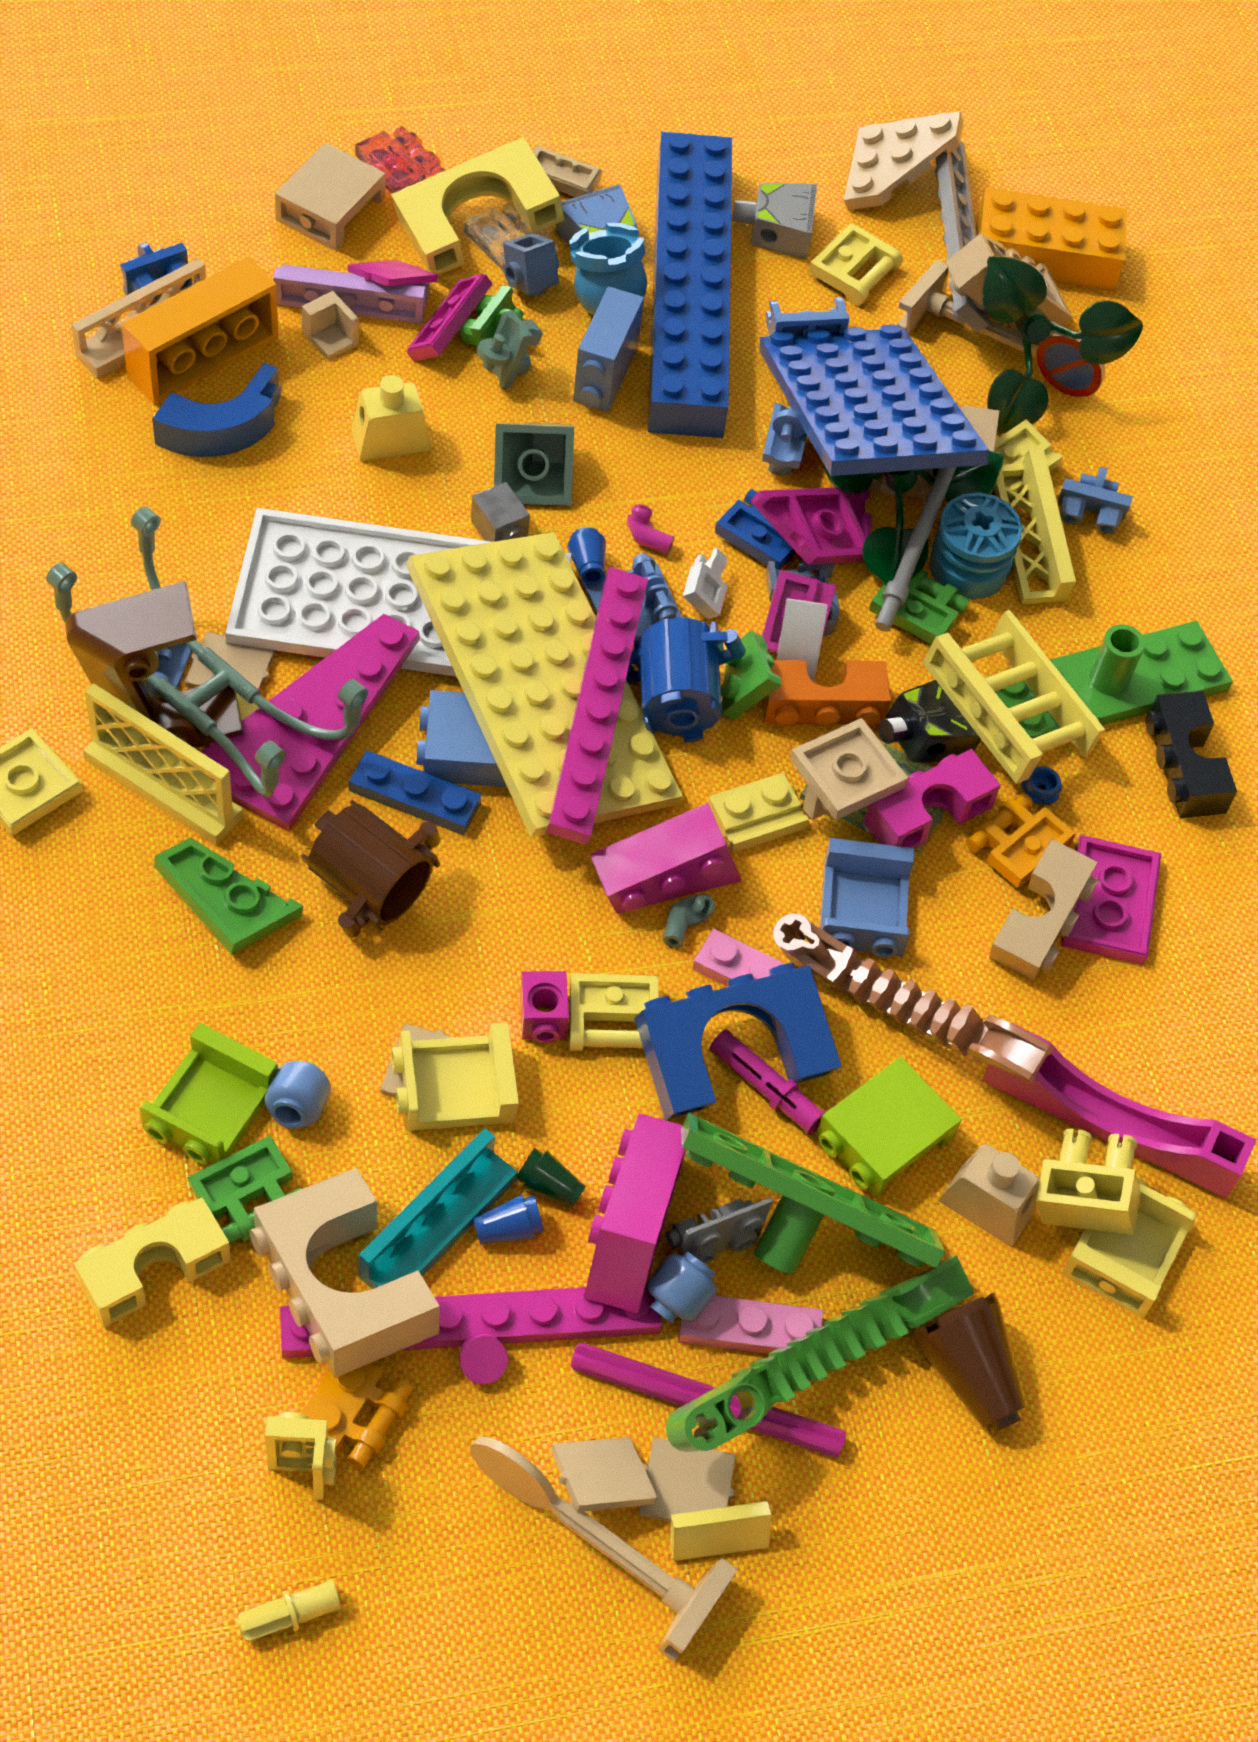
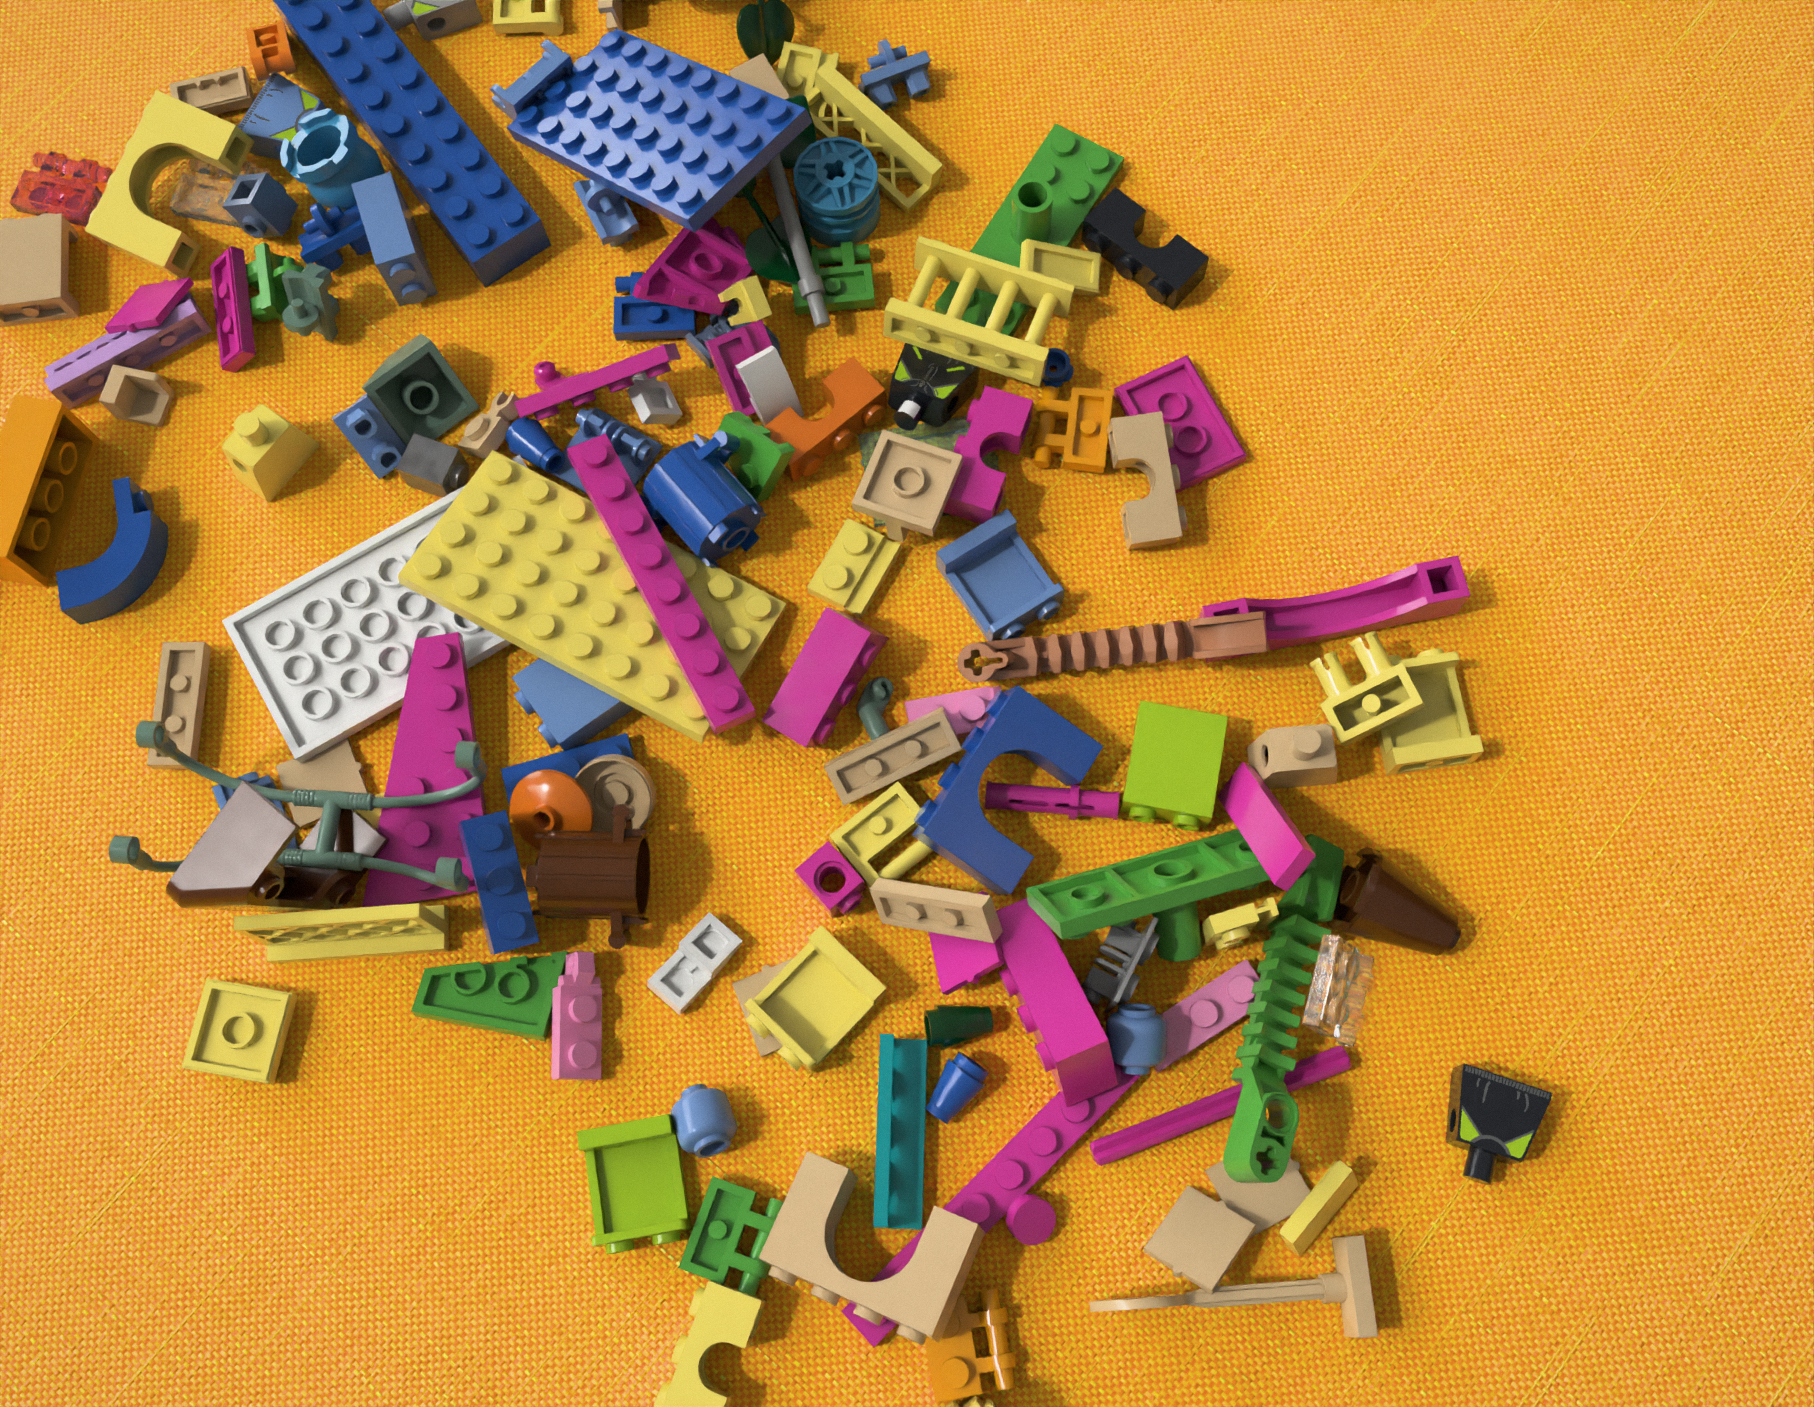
camera: 25 degrees left, 15 degrees up
(179, 539) = (181, 698): none -> tan plate
(266, 957) = (577, 1021): none -> bright pink hinge
(295, 815) = (498, 882): none -> blue arch
(391, 791) = (556, 796): none -> orange dish
(397, 988) = (695, 963): none -> white slope
(442, 808) = (615, 781): none -> tan piece
(473, 462) = (371, 435): none -> medium blue hips
(563, 311) = (330, 232): none -> blue hips
(565, 522) = (489, 429): none -> tan plate
(605, 1076) = (936, 910): none -> tan plate
(607, 1122) = (963, 959): none -> dark pink piece
(629, 170) = (270, 50): none -> orange plate
(669, 954) = (893, 756): none -> tan plate
(687, 544) = (583, 388): none -> dark pink plate
(835, 1268) = (1233, 925): none -> light yellow plate
(840, 565) = (750, 298): none -> light yellow tile
(869, 1375) = (1338, 991): none -> clear plate
(918, 1205) = (1266, 827): none -> dark pink tile
(923, 1581) = (1492, 1119): none -> black torso
(1123, 729) = (1063, 263): none -> light yellow tile

